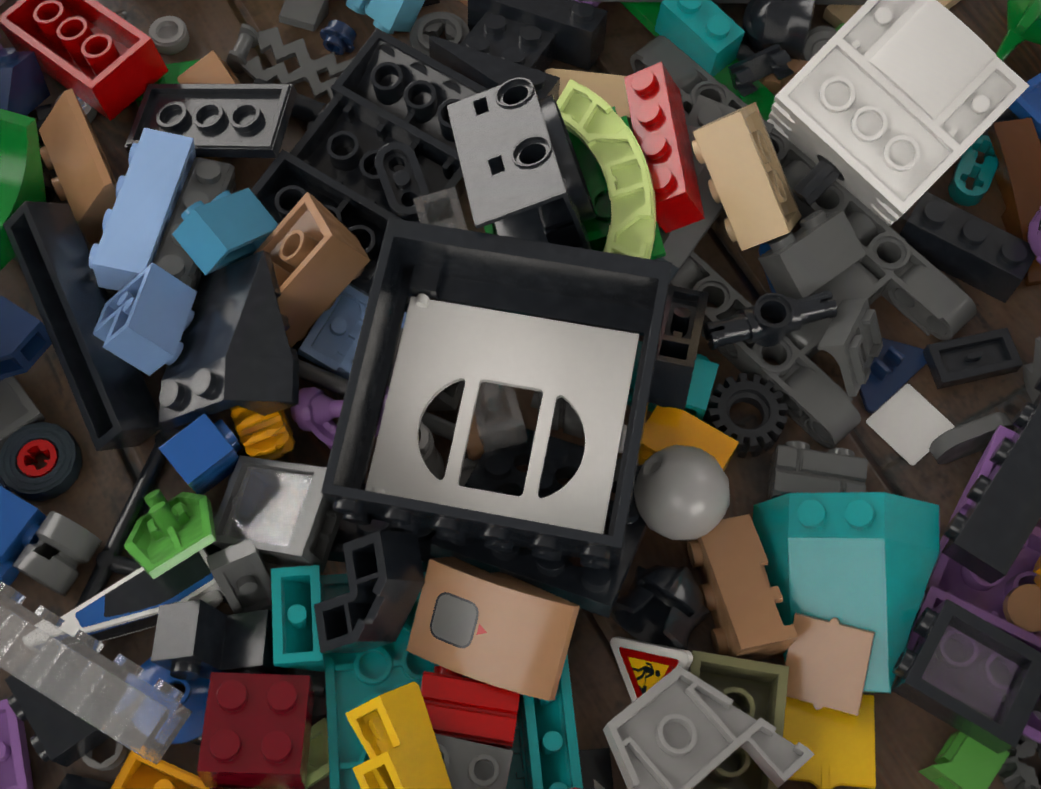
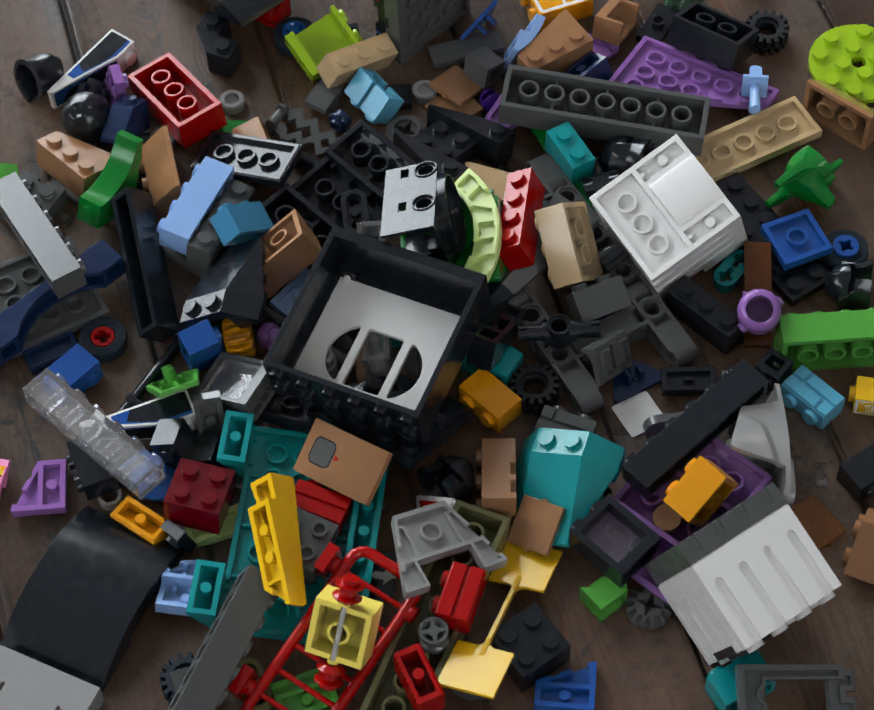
camera: 15 degrees right, 10 degrees down
(56, 536) = (107, 386): dark grey wheel -> none
(147, 319) = (185, 265): medium blue brick -> none
(383, 587) = (285, 431): black brick -> none
(682, 492) = (474, 415): light grey piece -> none

